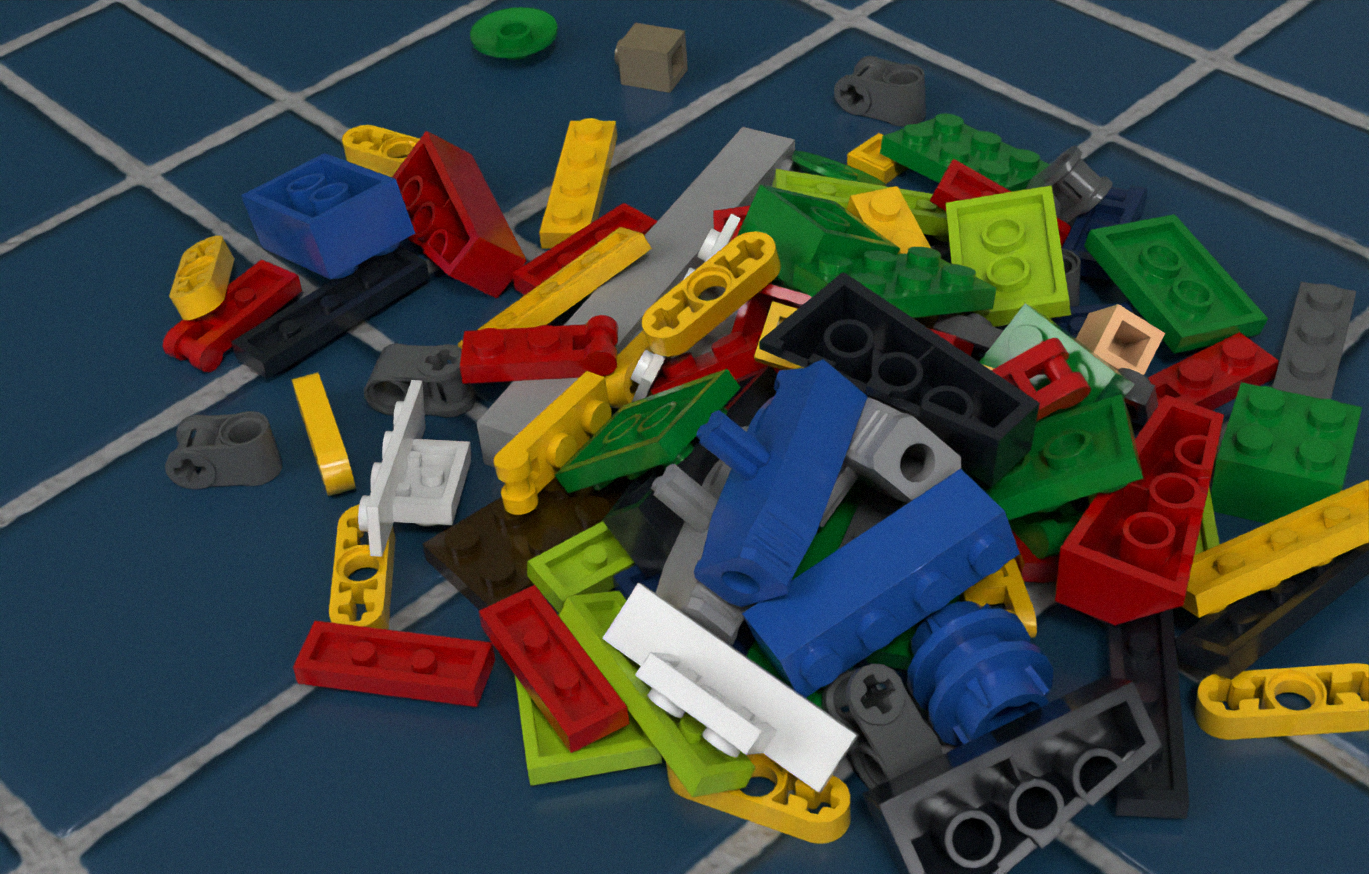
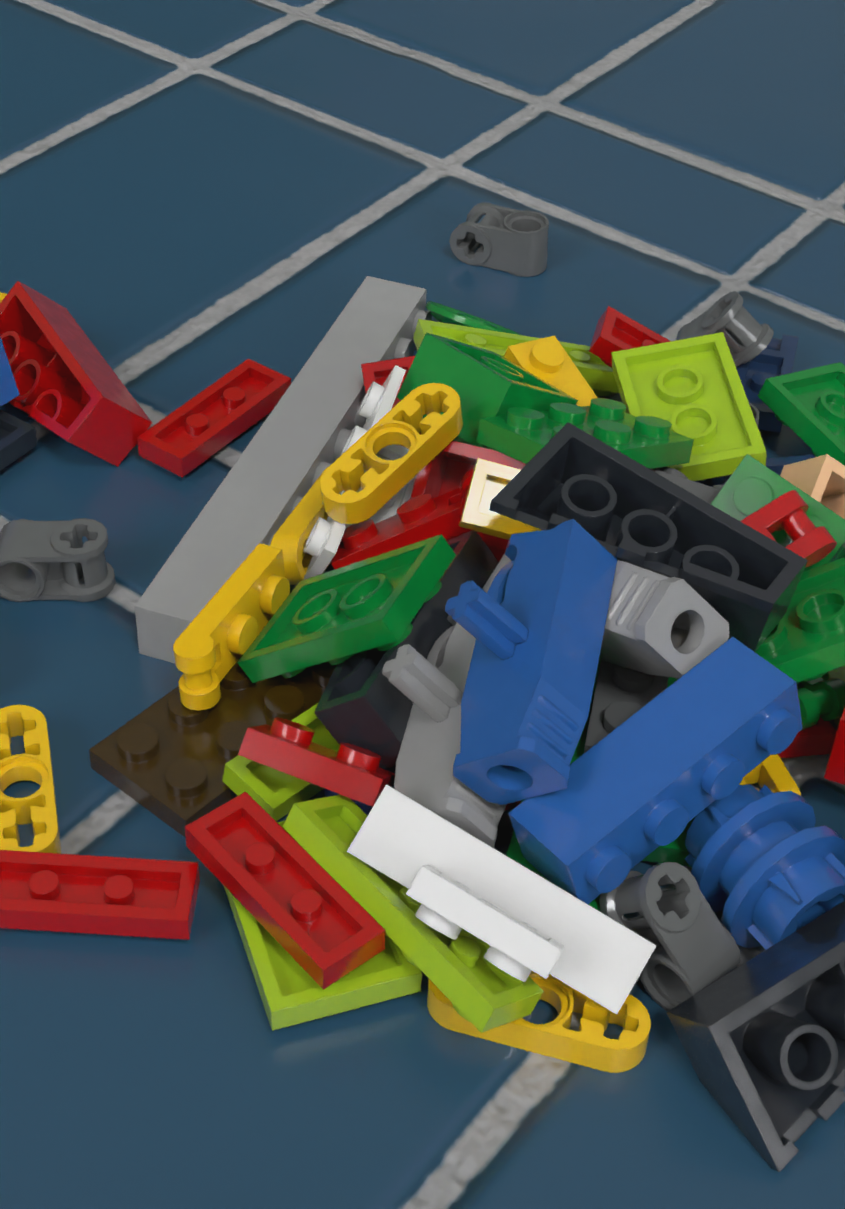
camera: 15 degrees left, 0 degrees up
(417, 477) = (69, 672): white bracket -> none
(513, 32) = (86, 178): green dish -> none
(539, 352) = (196, 523): red plate -> none
(573, 281) = (194, 462): yellow tile -> none
(578, 180) = (188, 337): yellow plate -> none
(579, 552) = (290, 749): none -> red plate
(652, 57) = (245, 204): dark tan brick -> none
(869, 160) = (513, 308): yellow tile -> none
(935, 142) = (580, 296): green plate -> none

